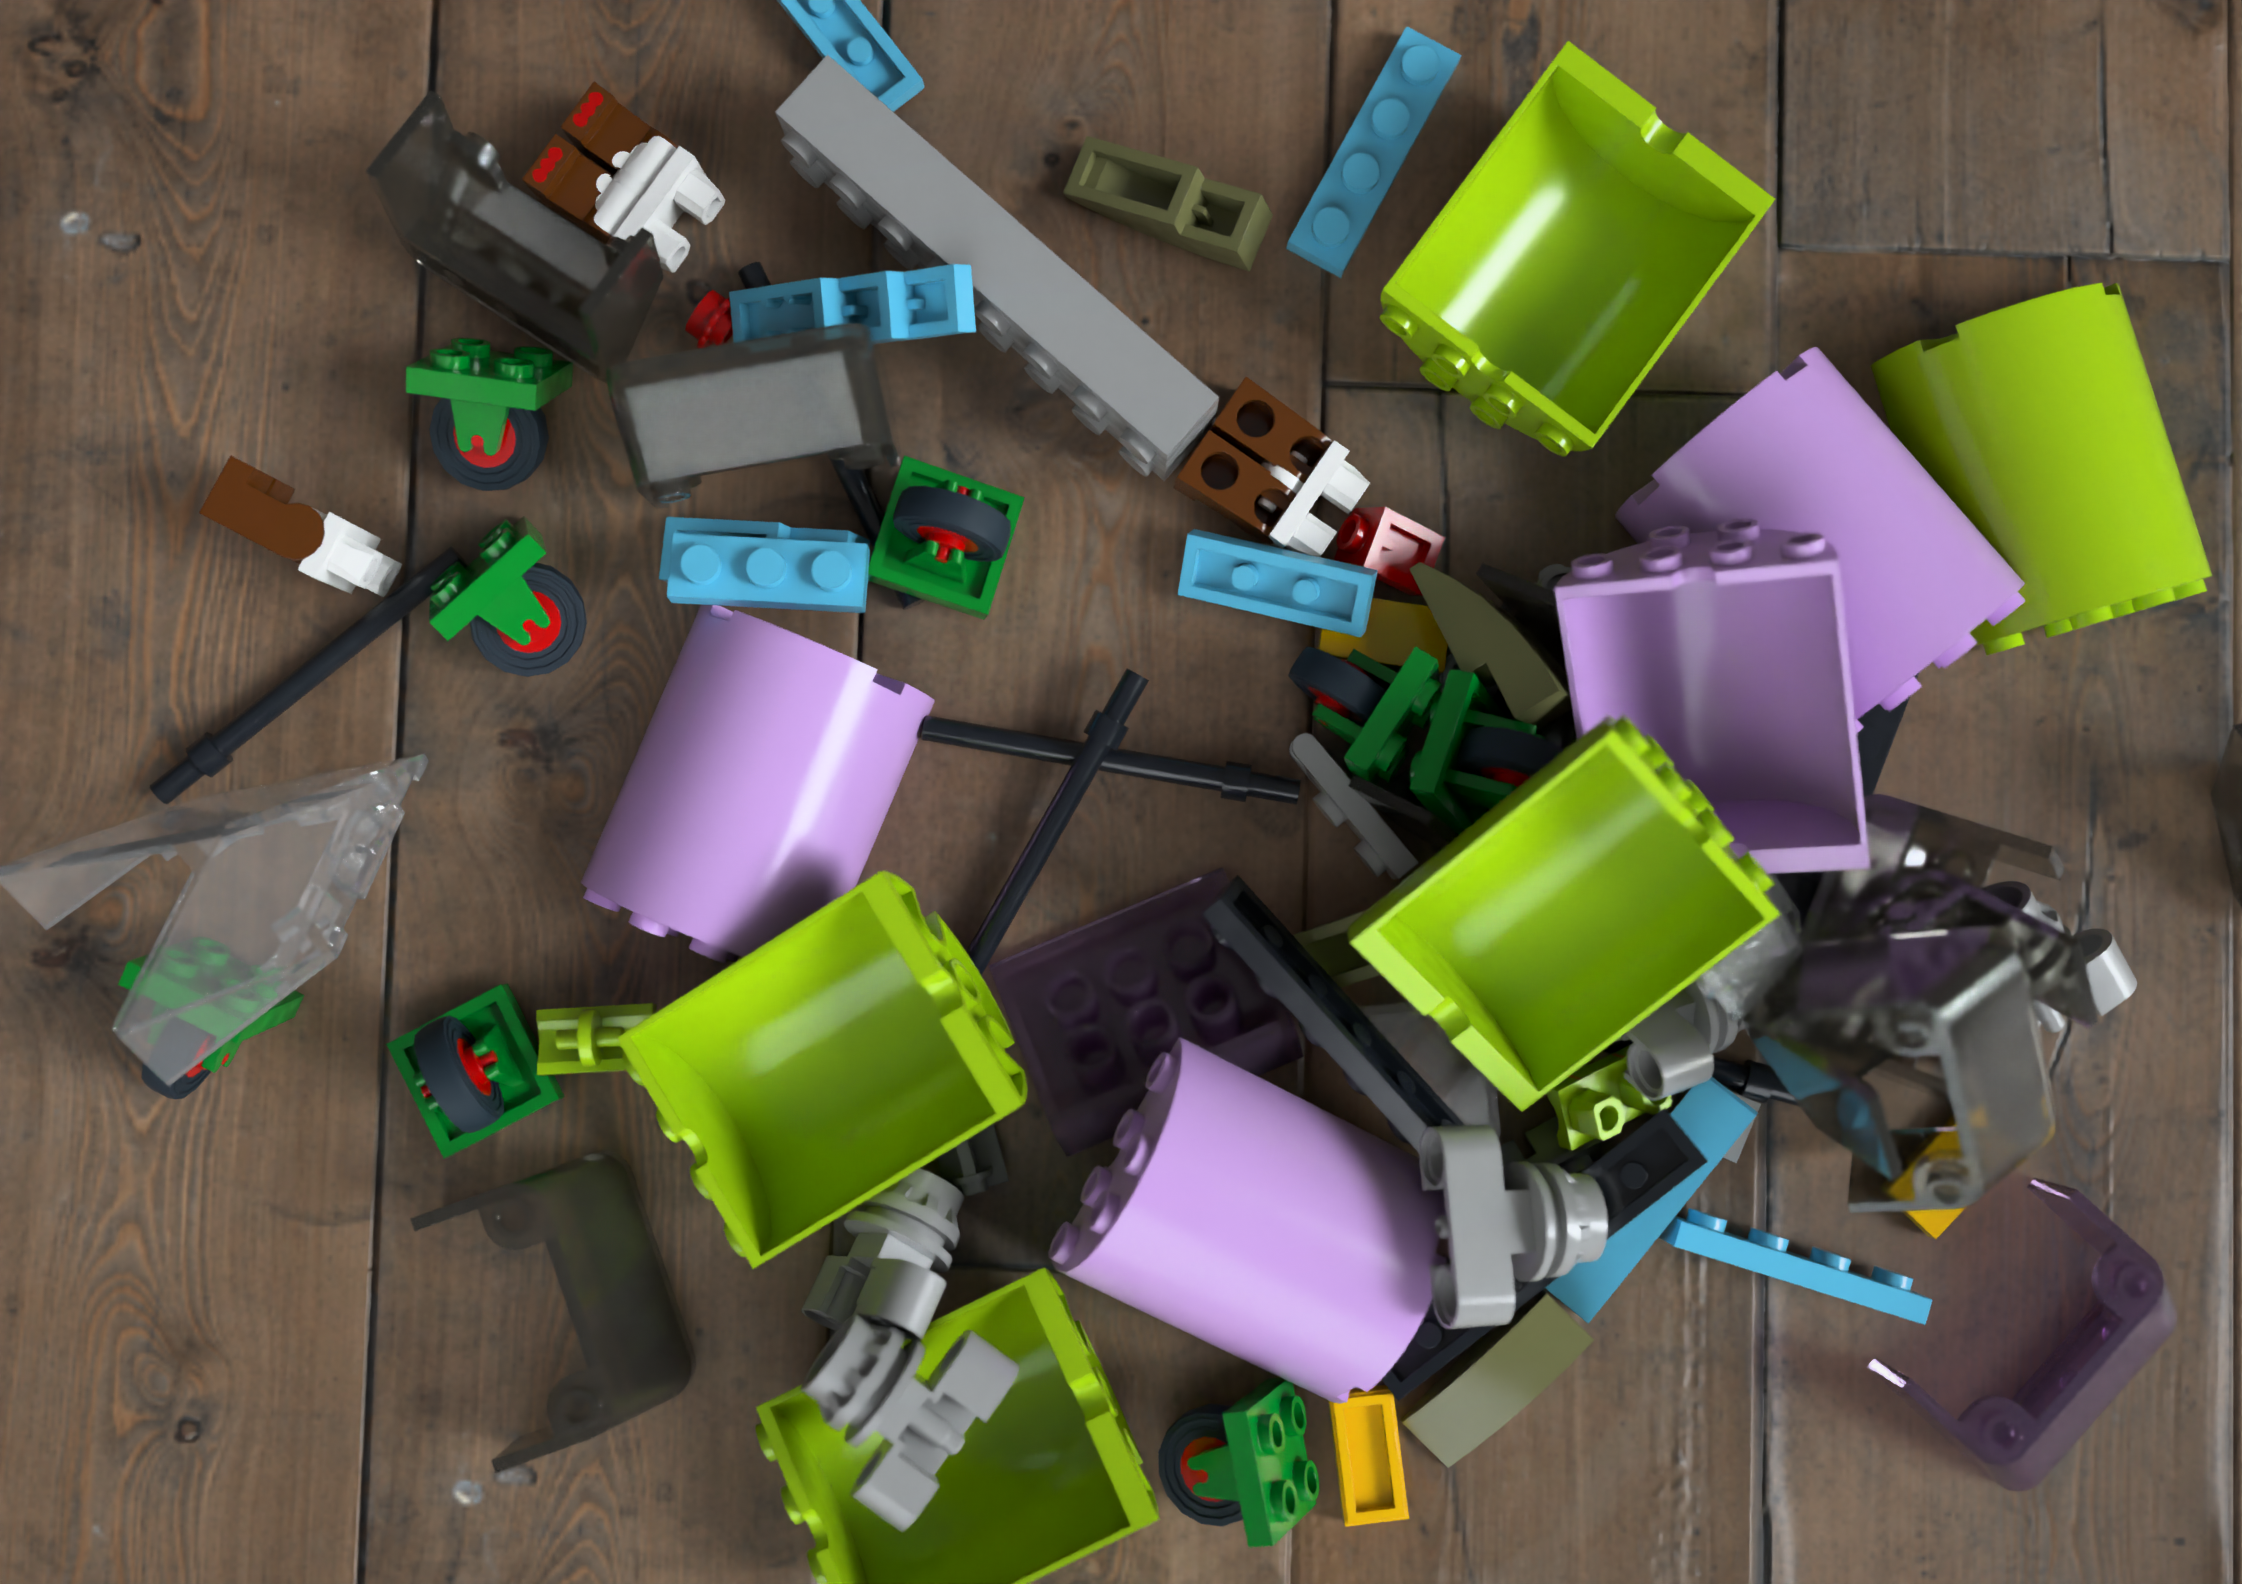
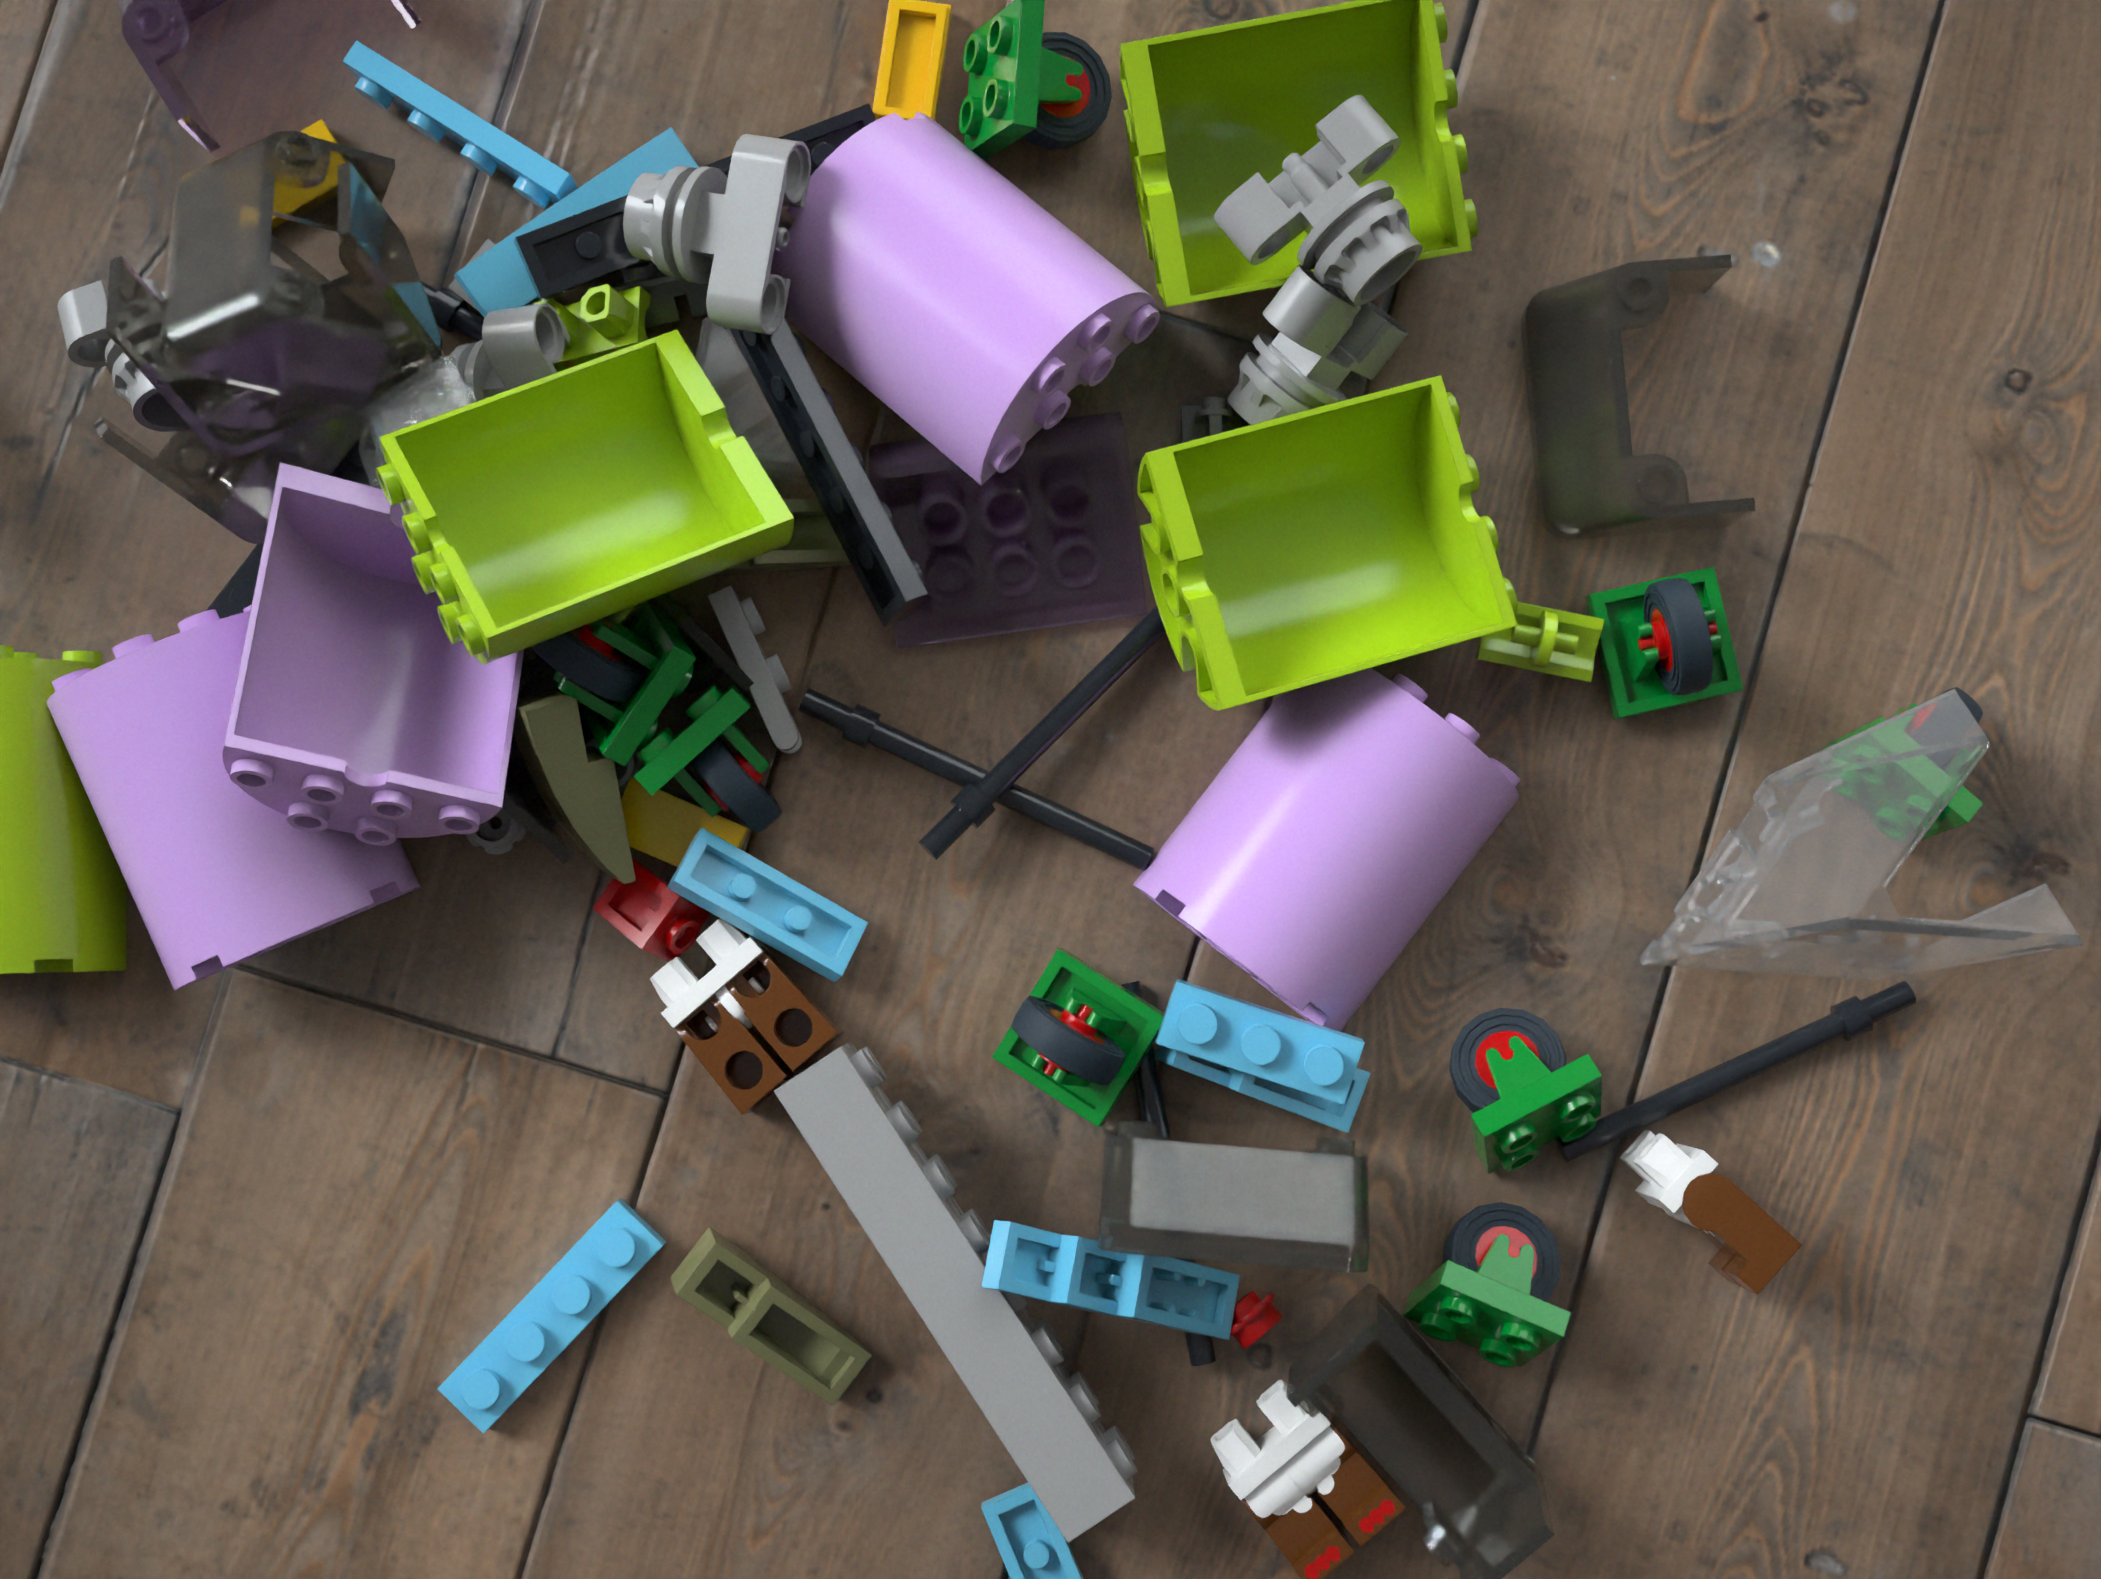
camera: 165 degrees left, 0 degrees up
(1496, 1379) = (771, 97): olive slope -> none
(1569, 257) = (387, 1142): lime cylinder -> none

